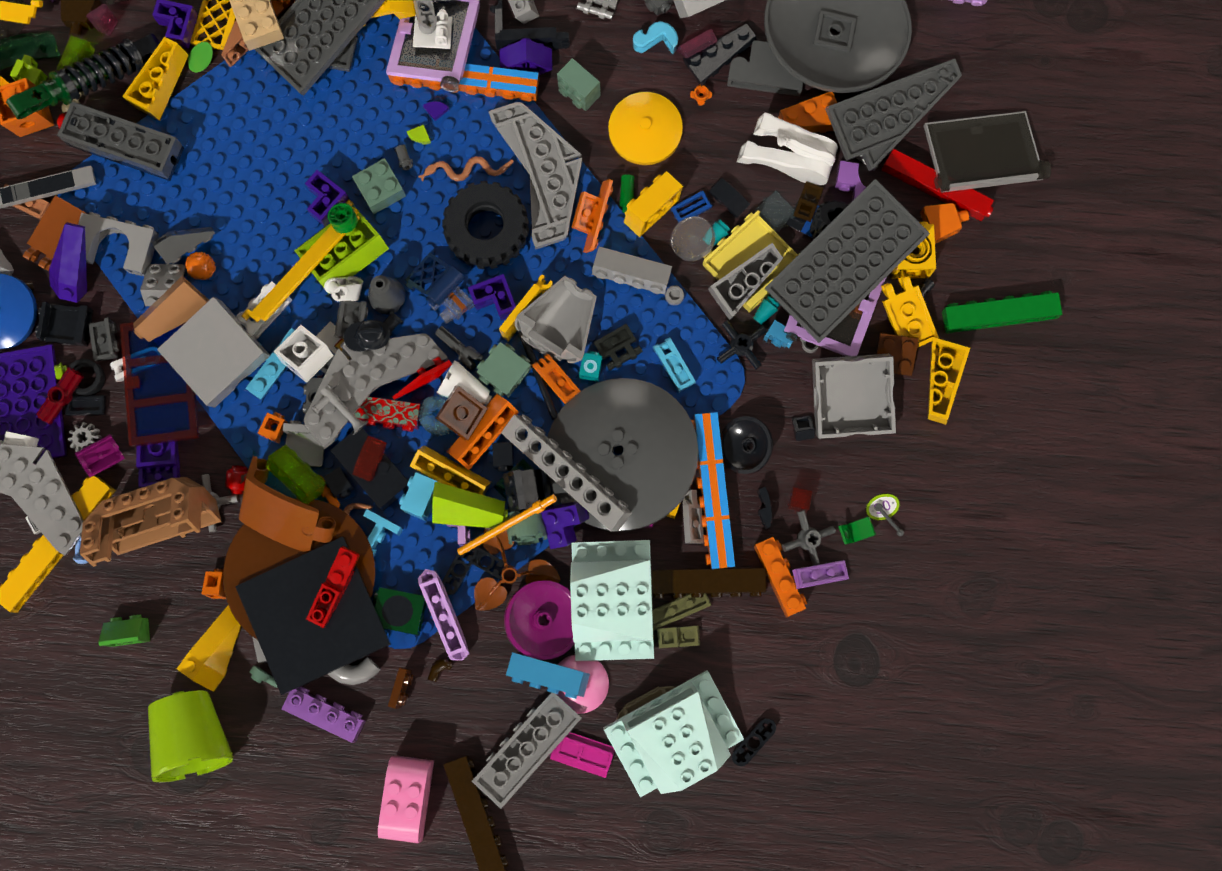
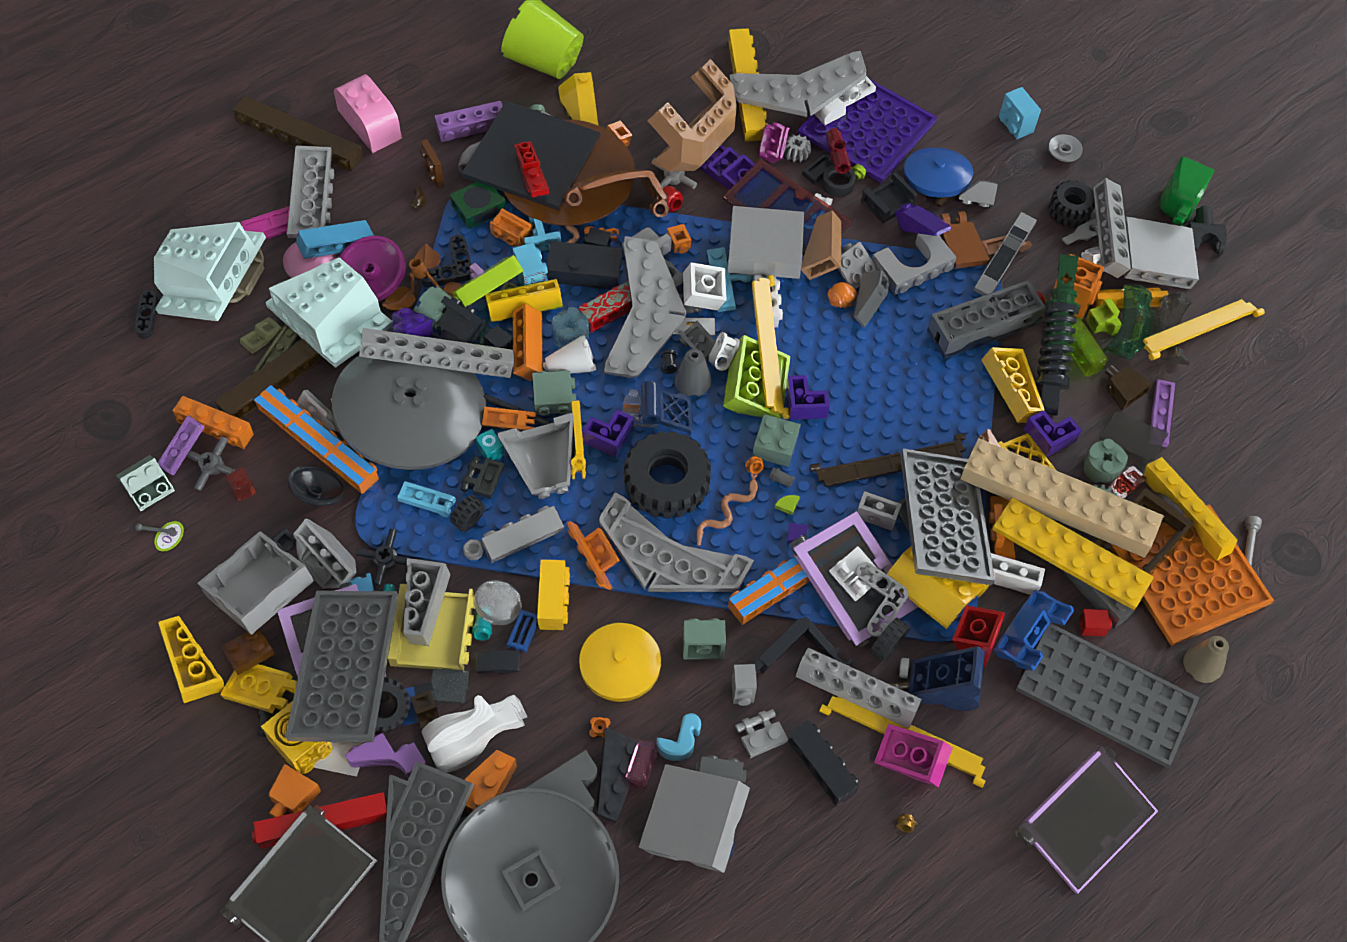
camera: 130 degrees right, 20 degrees down
(103, 19) = (1100, 388): clear pink slope -> none
(104, 340) = (852, 208): dark grey bracket -> none
(125, 632) = (645, 69): bright green slope -> none
(200, 57) = (1008, 429): bright green sticker -> none
(295, 474) = (629, 218): clear neon green brick -> none
(314, 103) = (880, 465): none -> dark brown piece
(328, 397) = (652, 267): light grey piece -> none
(336, 217) = (780, 393): green wheel -> none
(365, 68) = (878, 510): none -> light grey brick
(366, 335) = (674, 334): black piece -> none
(368, 458) = (587, 257): clear red slope -> none
(396, 559) = (510, 228): none -> orange hinge
(413, 183) = (754, 465): none -> orange plate
(425, 377) = (604, 338): red piece -> none
(443, 615) = (444, 220): lavender brick -> none
(461, 413) = (551, 332): reddish brown plate -> none
(466, 354) = (589, 384): dark grey piece -> none
(526, 56) = (766, 625): dark purple brick -> none
(537, 507) = (433, 306): light orange bar -> none
(582, 31) = (744, 684): none -> light grey brick
(626, 191) = (585, 597): green cylinder -> none
(657, 319) = (467, 513): none -> black tyre
(765, 514) = (262, 457): black slope -> none
(785, 378) = (323, 555): none -> light grey wedge
(857, 530) = (177, 498): green bracket -> none
(870, 566) = (145, 482): none -> slope
(1001, 312) = (176, 758): green brick -> none

